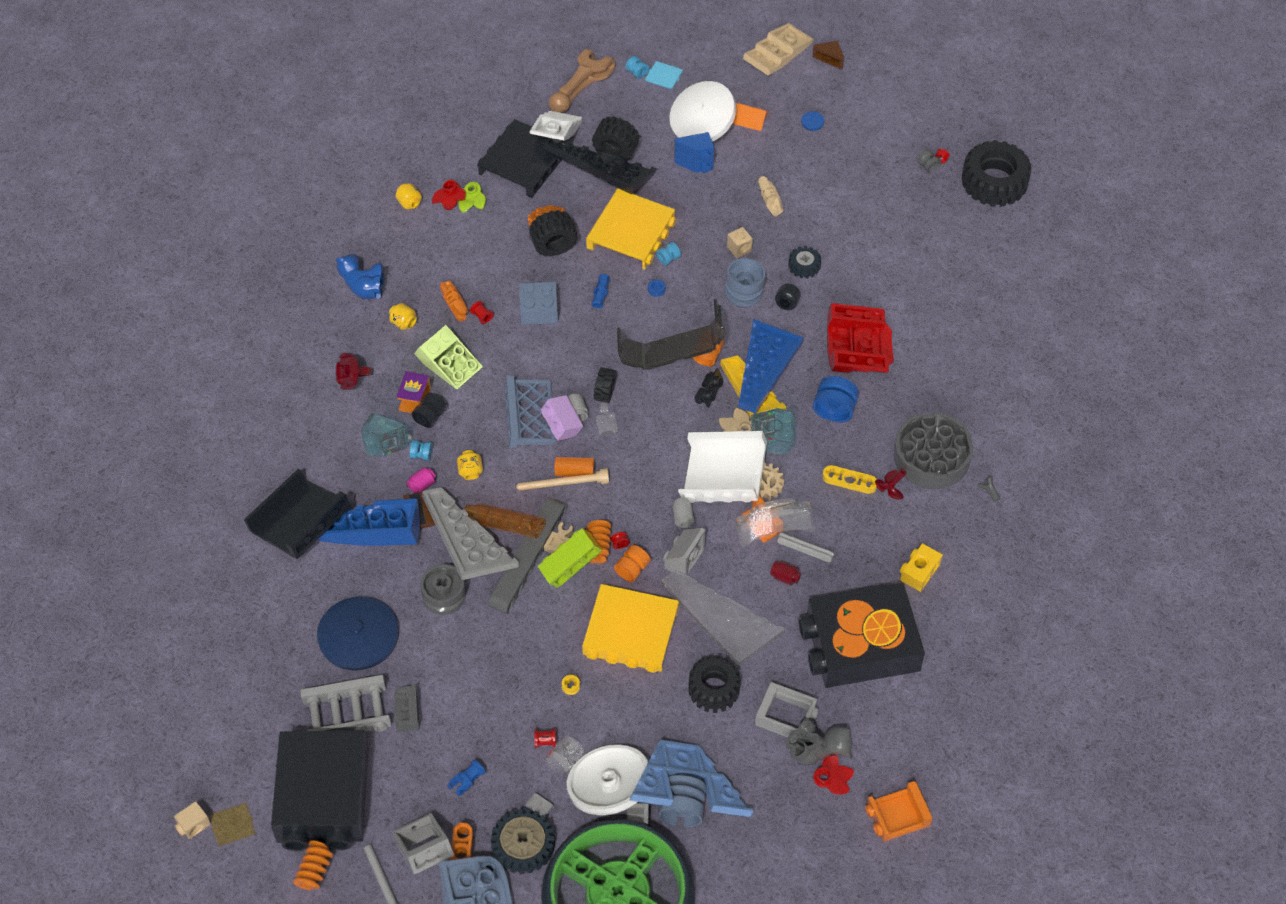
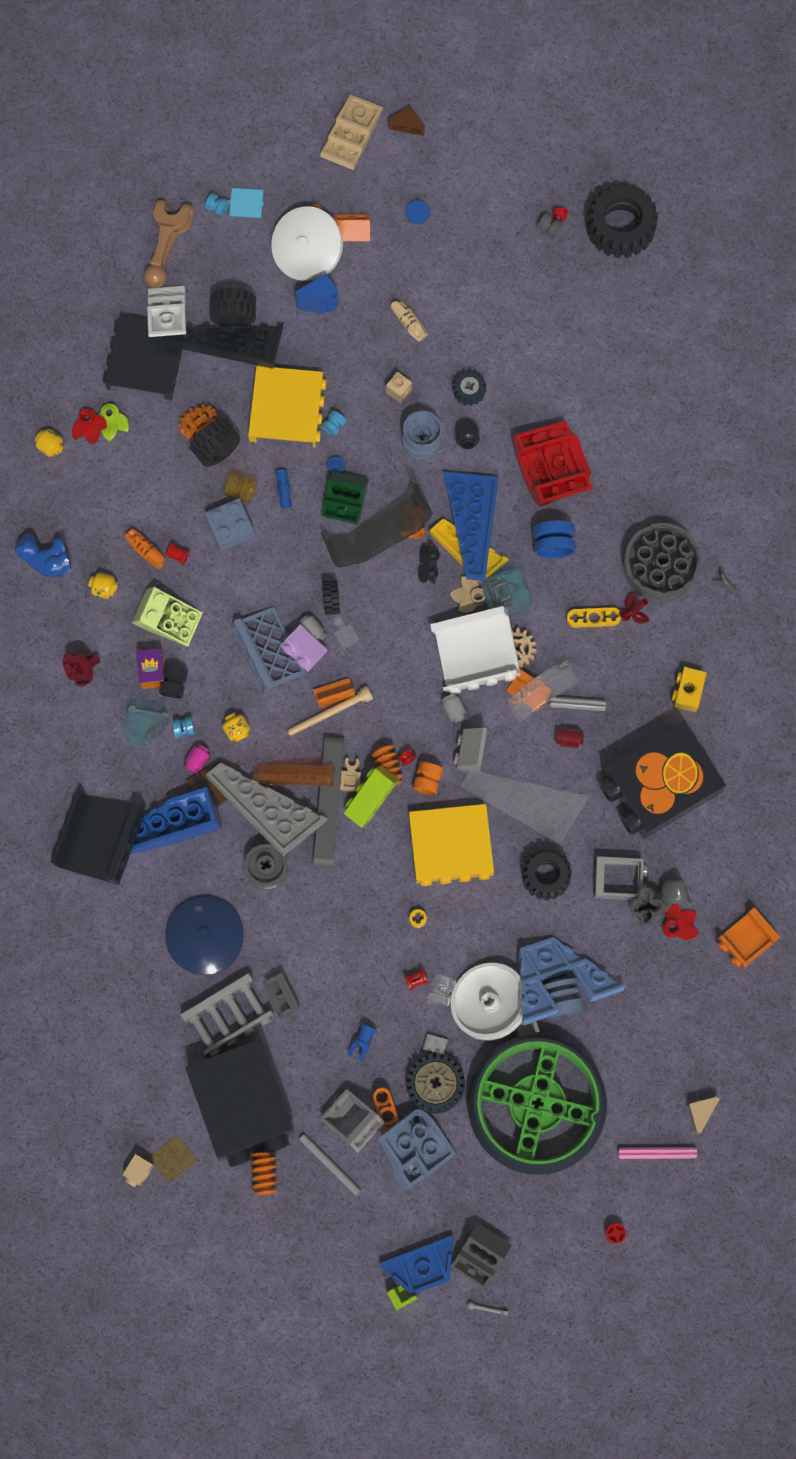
camera: 20 degrees left, 20 degrees up
(565, 278) = (240, 487): none -> clear yellow wheel
(653, 312) = (345, 497): none -> dark green piece

